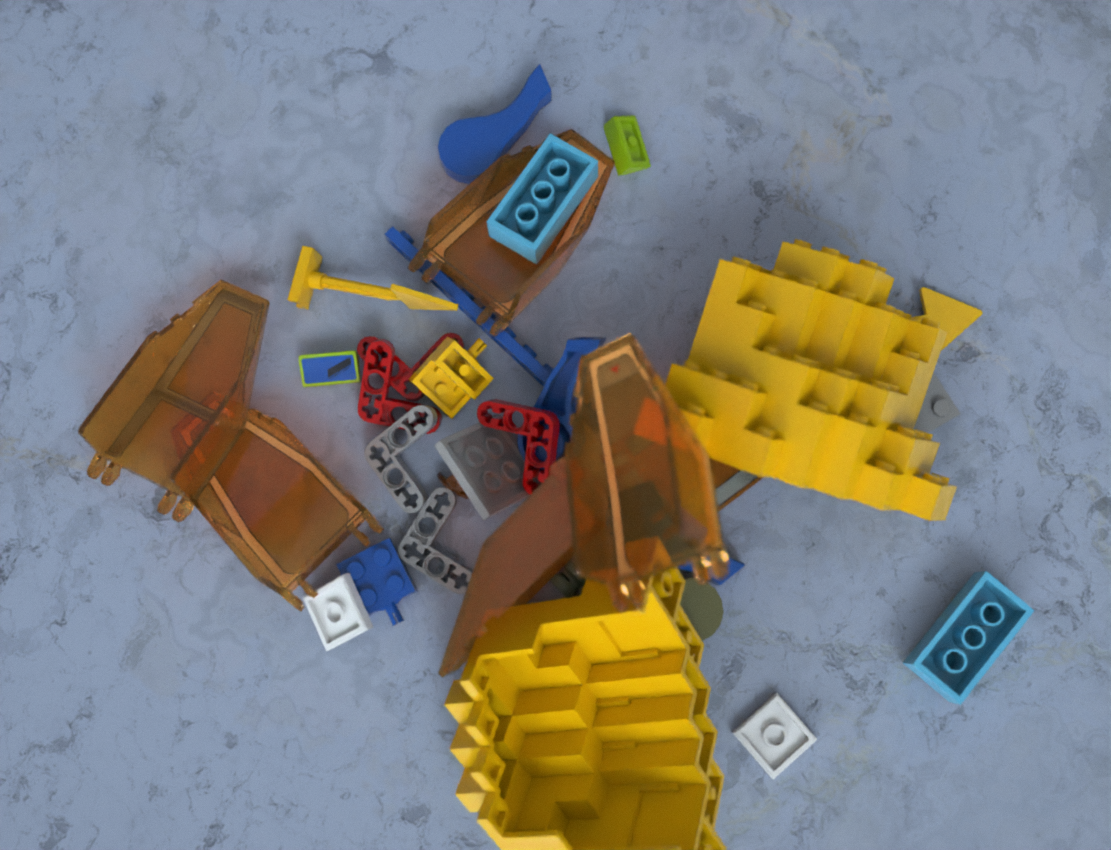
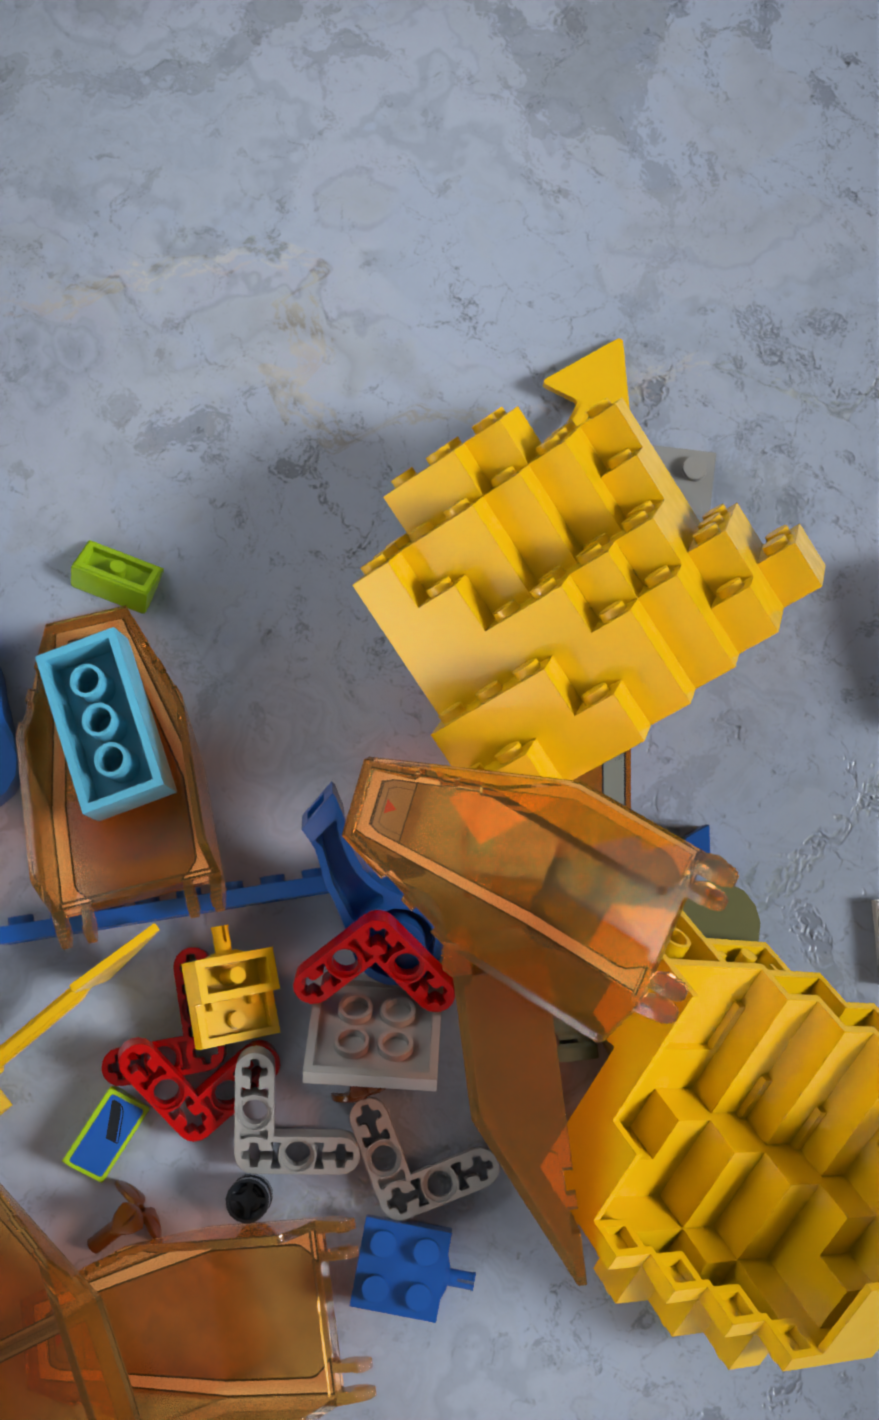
camera: 55 degrees left, 0 degrees up
(294, 412) = (127, 1219): none -> reddish brown plant
(338, 612) = (408, 1345): white tile -> none
(348, 465) = (246, 1205): none -> black wheel

